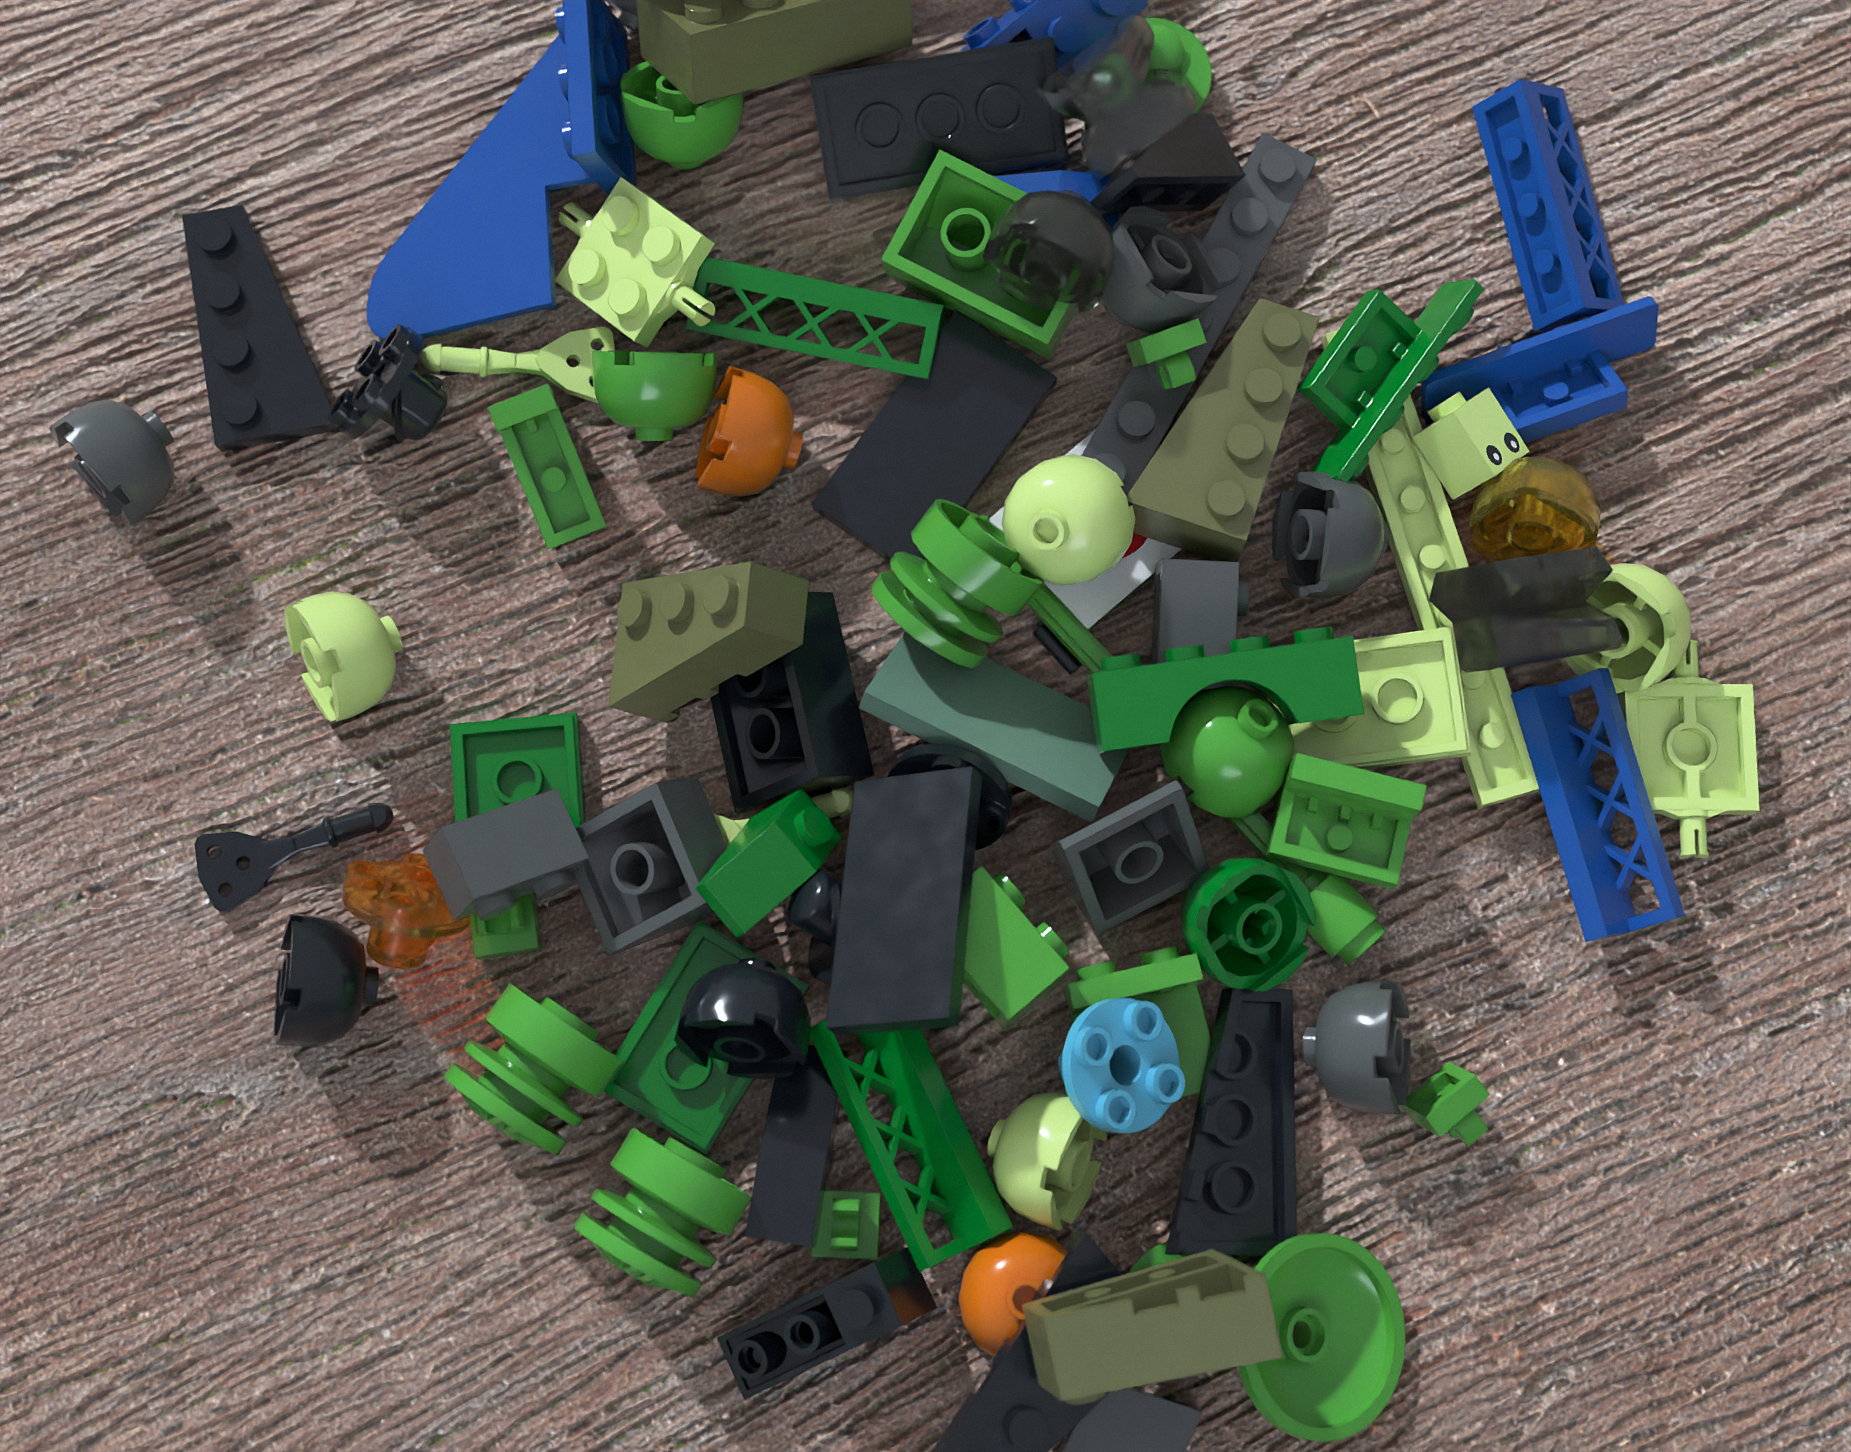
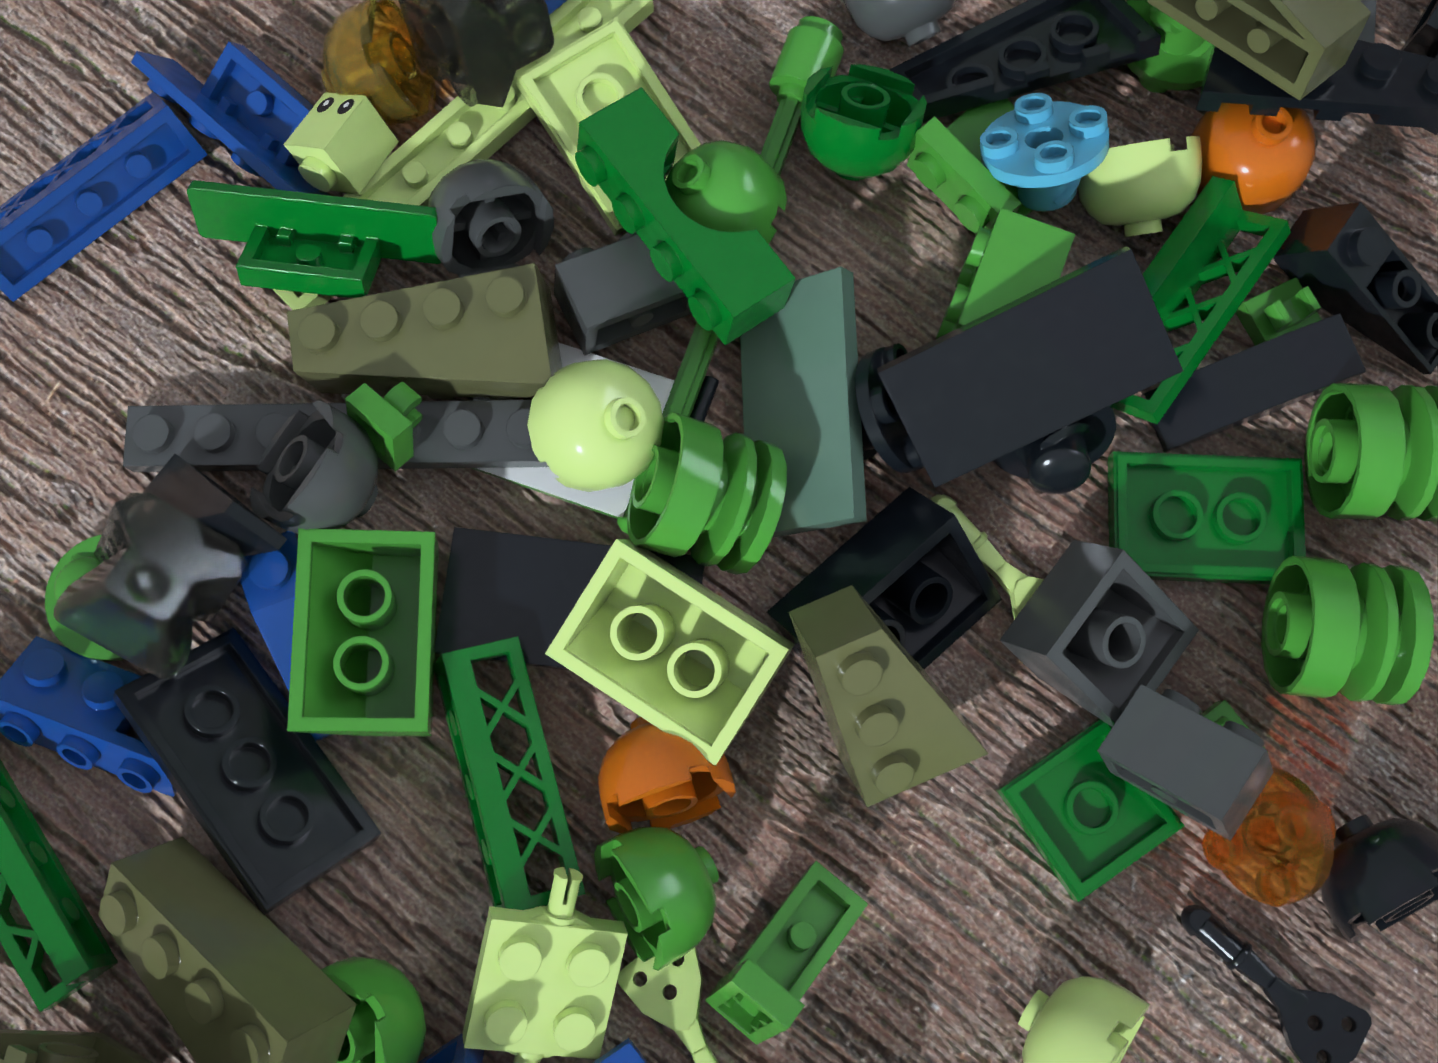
camera: 120 degrees left, 0 degrees up
(746, 1018) = (1187, 471): black cylinder -> none
(768, 861) = (1046, 526): green slope -> none
(841, 486) = (669, 648): none -> yellowish green slope
(1053, 250) = (339, 554): clear smoke cylinder -> none
(1132, 858) = (849, 227): dark grey slope -> none
(1344, 820) = (736, 77): bright green bracket -> none

